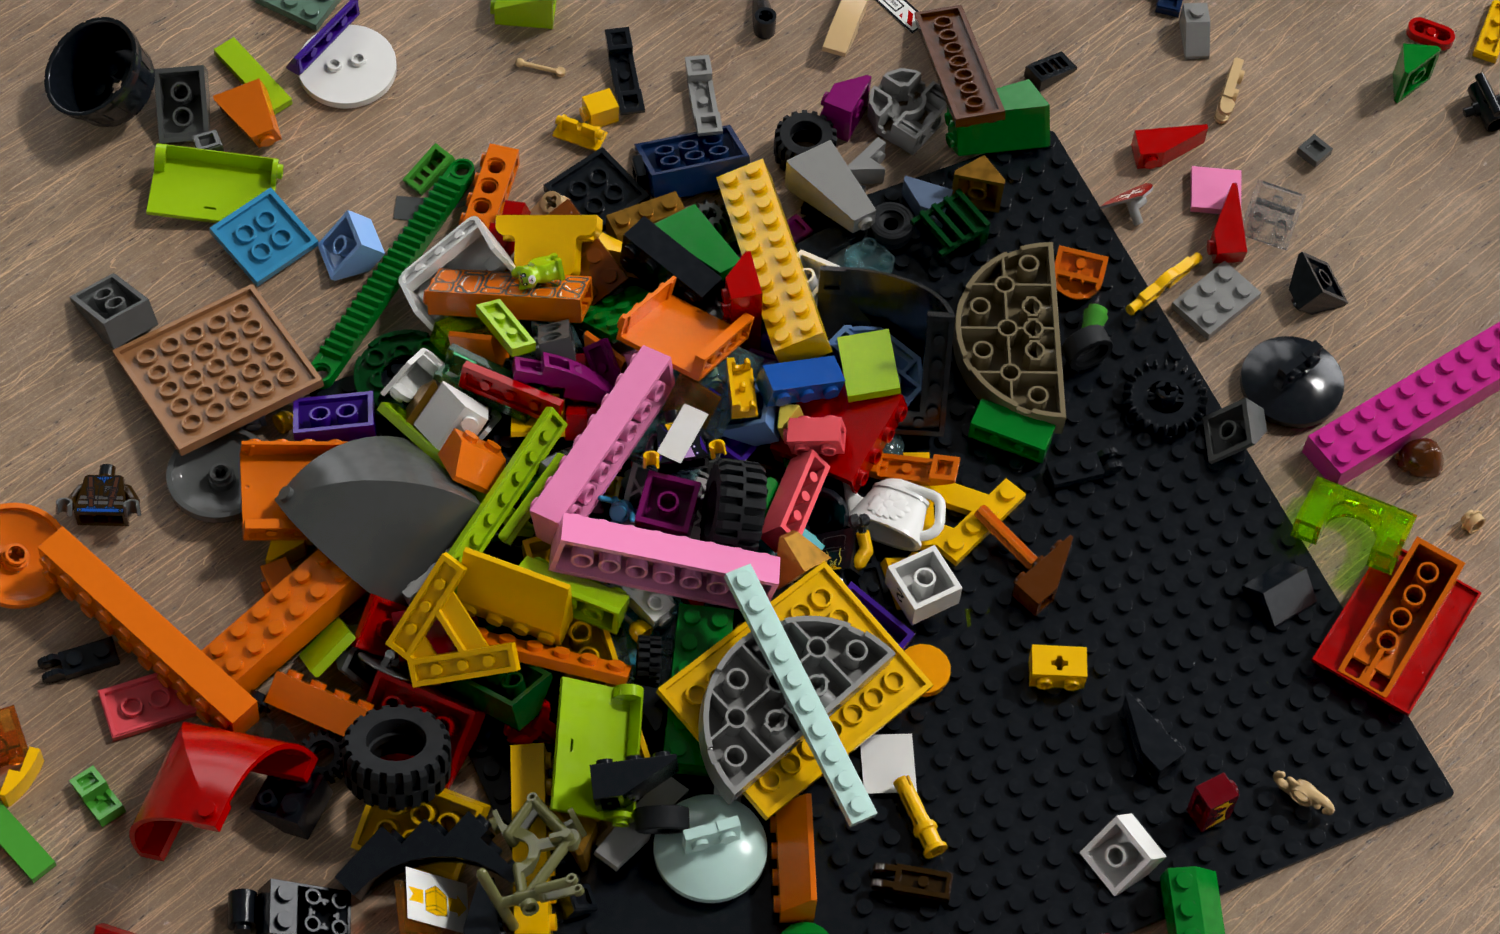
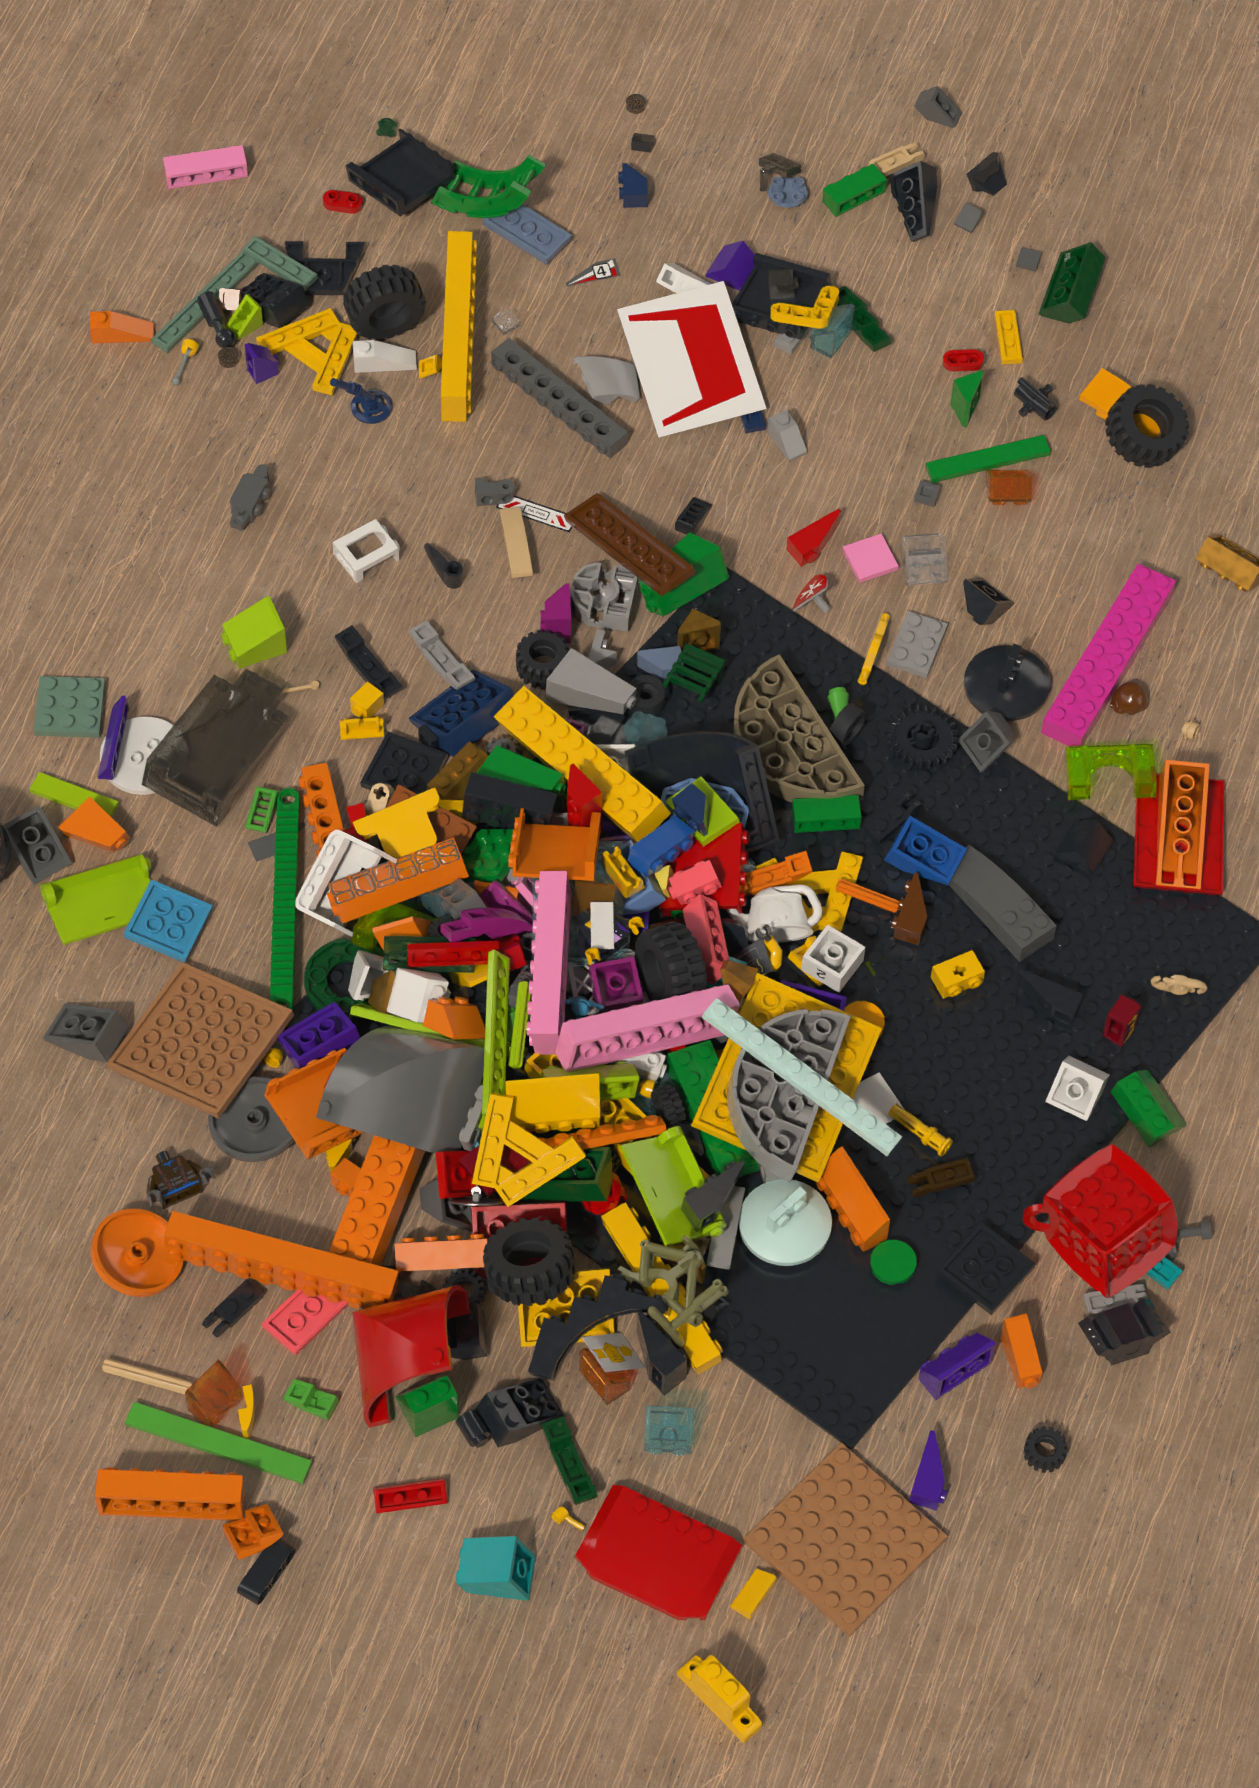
camera: 25 degrees left, 0 degrees up
(208, 140) = (74, 865): dark grey slope -> none
(208, 862) = (429, 1405): none -> green slope
(327, 647) = (419, 1209): lime tile -> none
(351, 246) = (241, 898): light blue slope -> none
(419, 83) = (216, 745): none -> clear smoke panel
(505, 327) = (418, 905): lime plate -> none
(539, 270) = (415, 850): lime animal -> none
(661, 819) = (746, 1215): black tyre -> none
(858, 355) = (693, 807): none -> dark blue slope
(1079, 273) = (809, 668): orange slope -> none
(1095, 518) = (925, 852): none -> blue slope
(1148, 609) = (1001, 905): none -> dark grey slope
(1228, 236) = (900, 590): red slope -> none
(1229, 92) = (838, 474): tan hinge -> none
(1402, 143) = (987, 458): none -> green tile
(1407, 180) = (1008, 486): none -> clear orange slope

